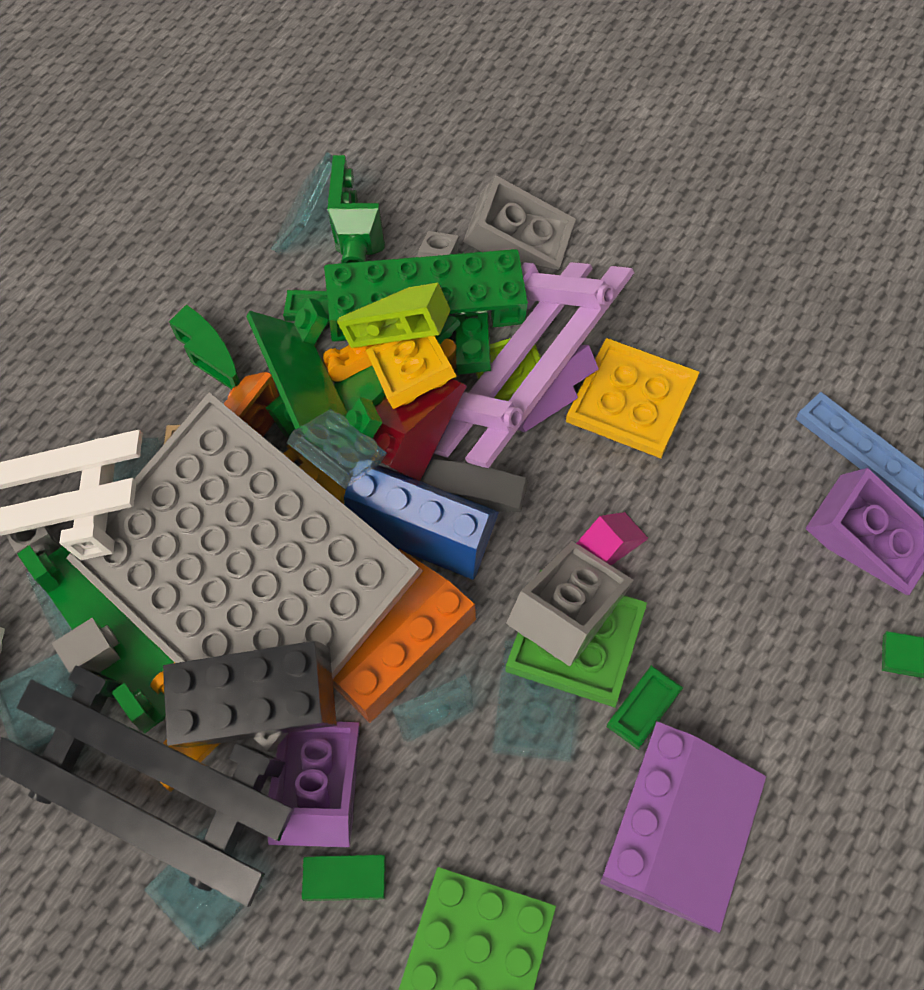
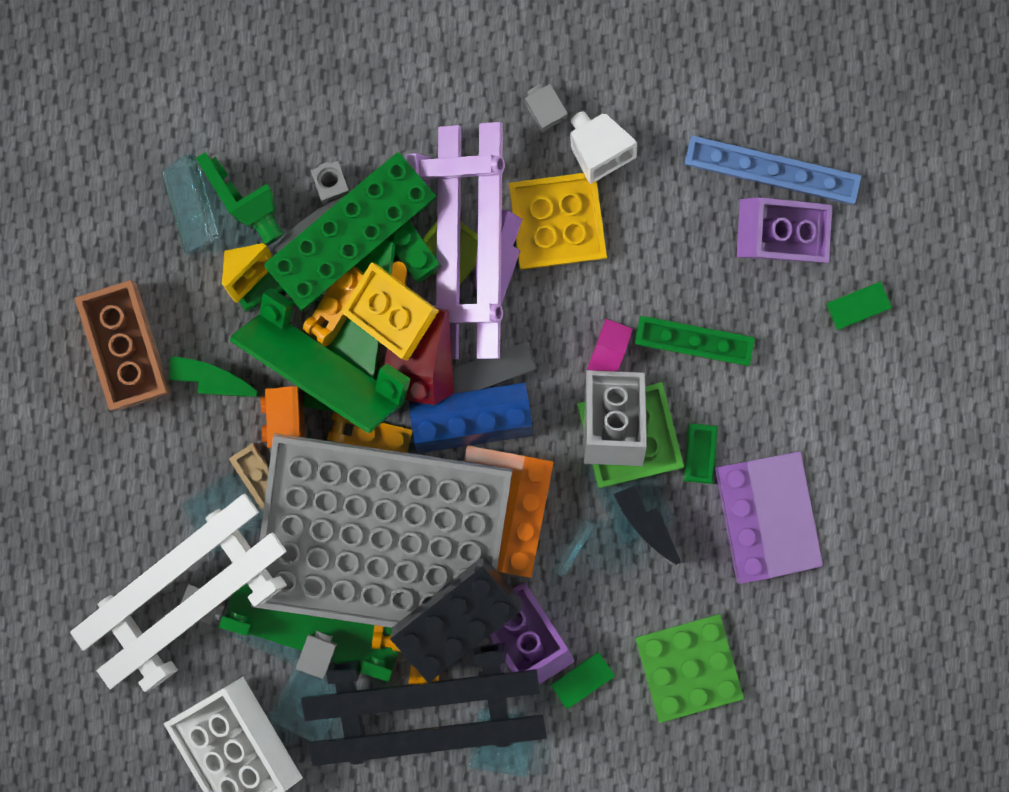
camera: 40 degrees left, 25 degrees up
(154, 278) = (122, 345): none -> nougat brick
(303, 275) = (244, 269): none -> yellow slope
(337, 448) = (398, 422): clear light blue plate -> none
(398, 317) = (358, 275): lime slope -> none
(517, 220) = (375, 115): light grey slope -> none
(535, 736) = (646, 523): none -> black slope
(684, 297) = (545, 106): none -> light grey brick
(710, 585) = (694, 341): none -> green plate
(721, 352) = (600, 145): none -> white torso

